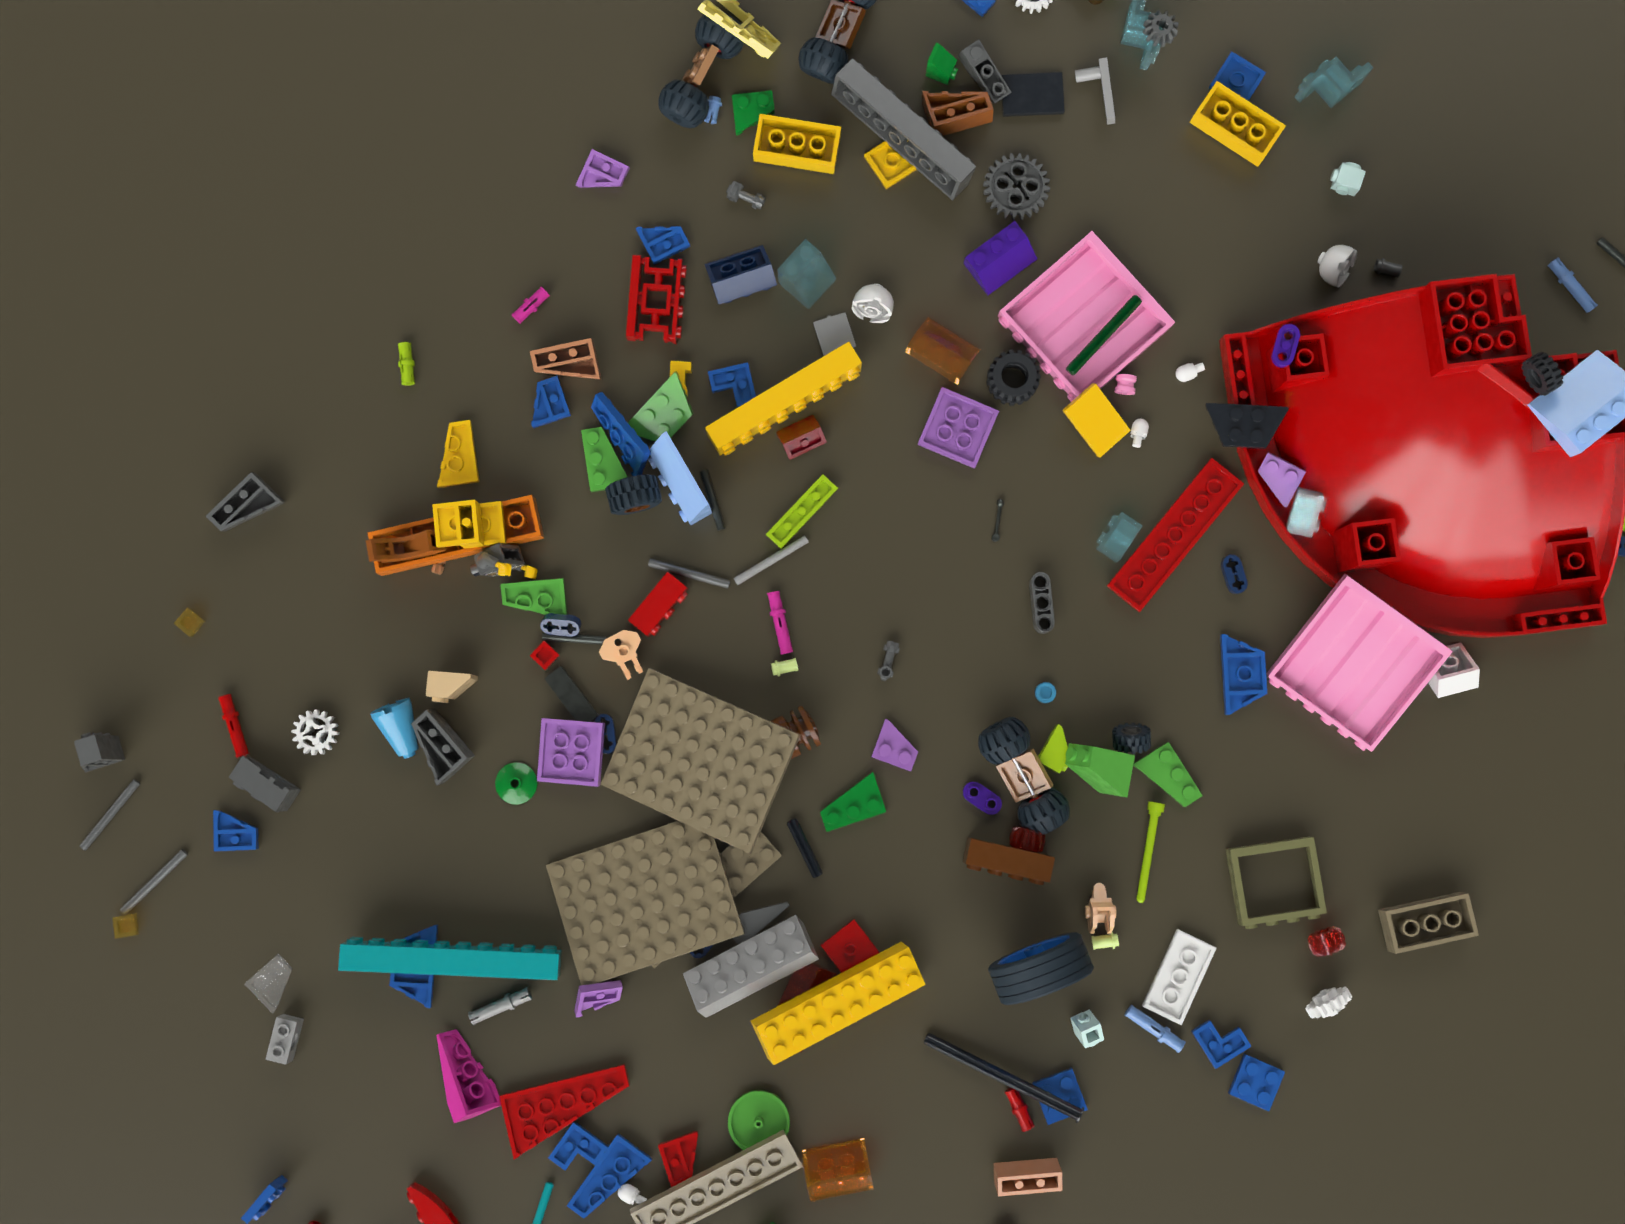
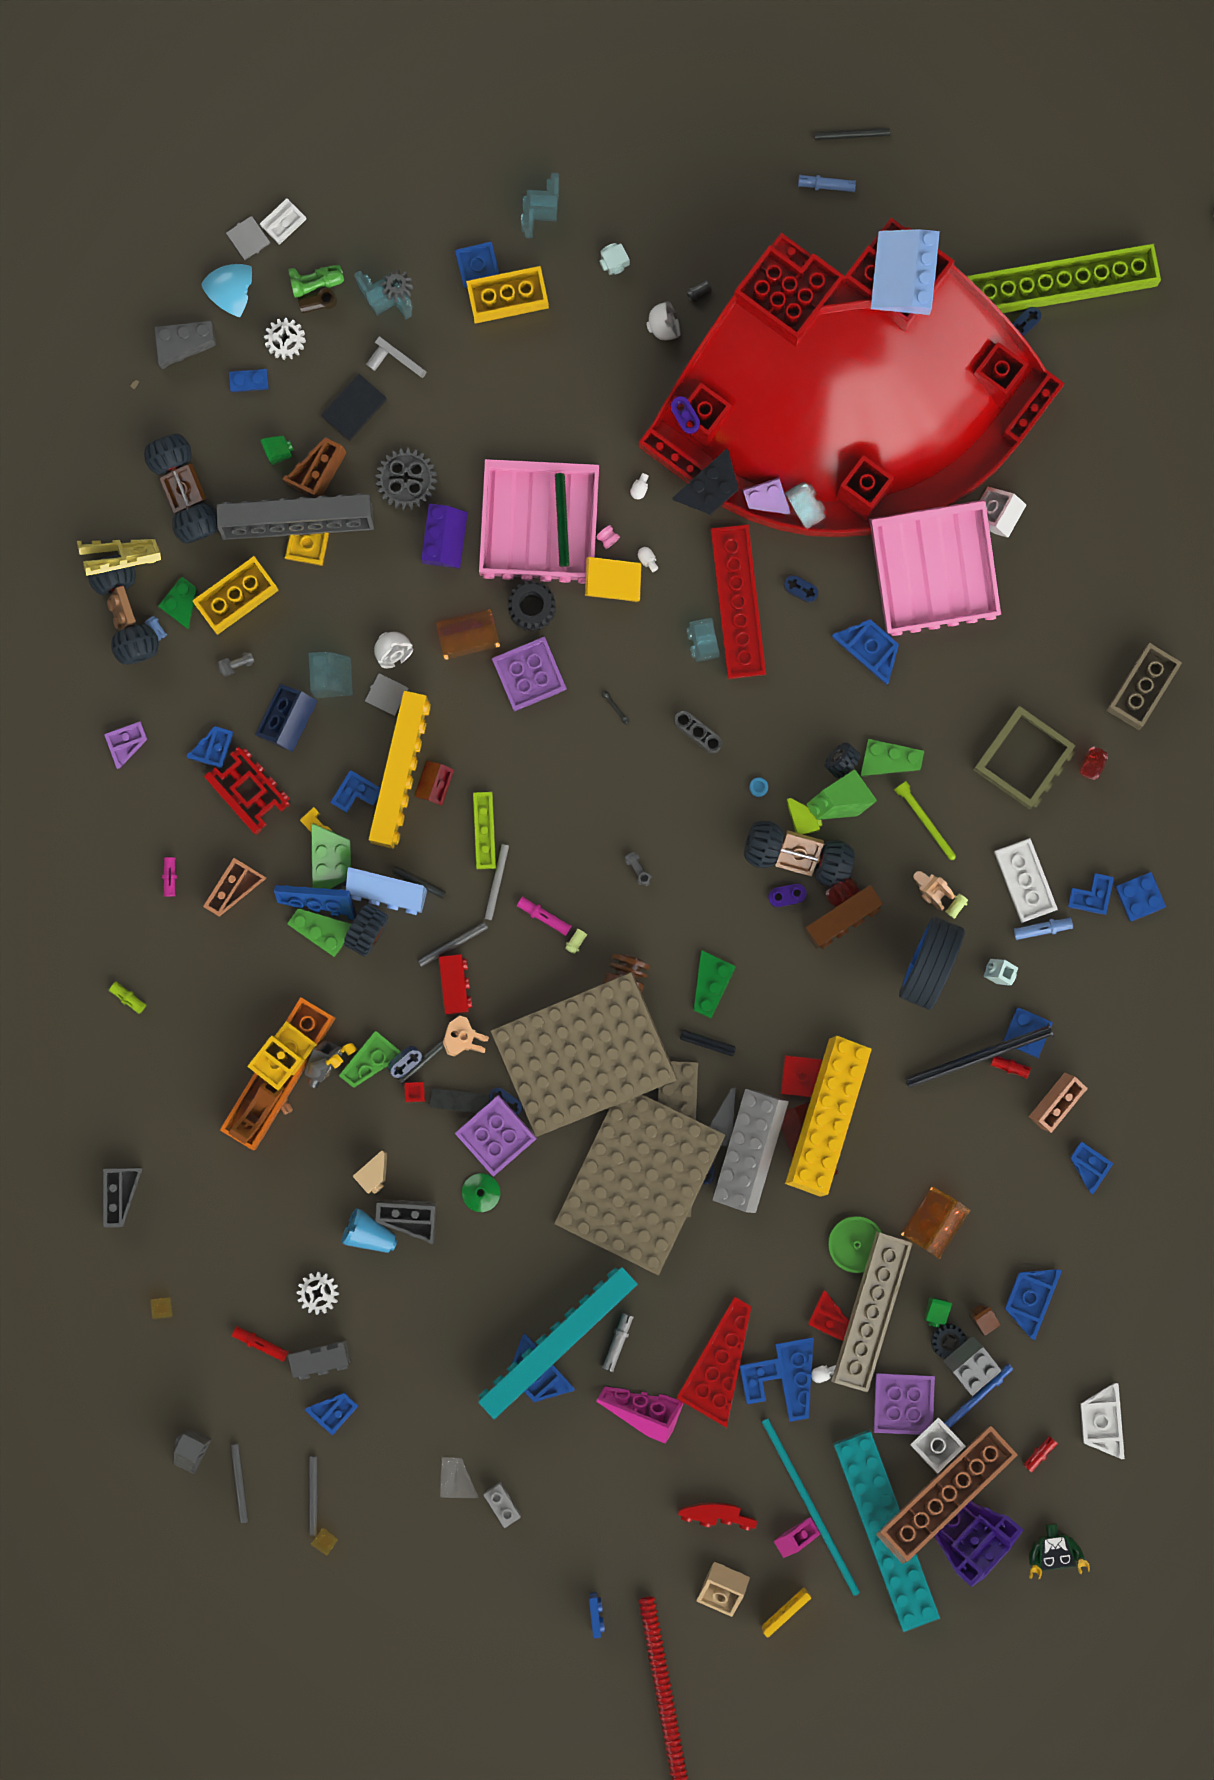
camera: 45 degrees left, 0 degrees up
(459, 458) = (226, 1022): yellow wing -> none
(549, 403) = (248, 927): blue wing -> none
(597, 995) = (673, 1271): medium lavender wing -> none
(894, 748) = (699, 921): medium lavender wing -> none
(983, 71) = (308, 425): dark grey slope -> none
(1328, 1002) = (1132, 800): white gear -> none
(1542, 373) = (859, 282): black tyre -> none

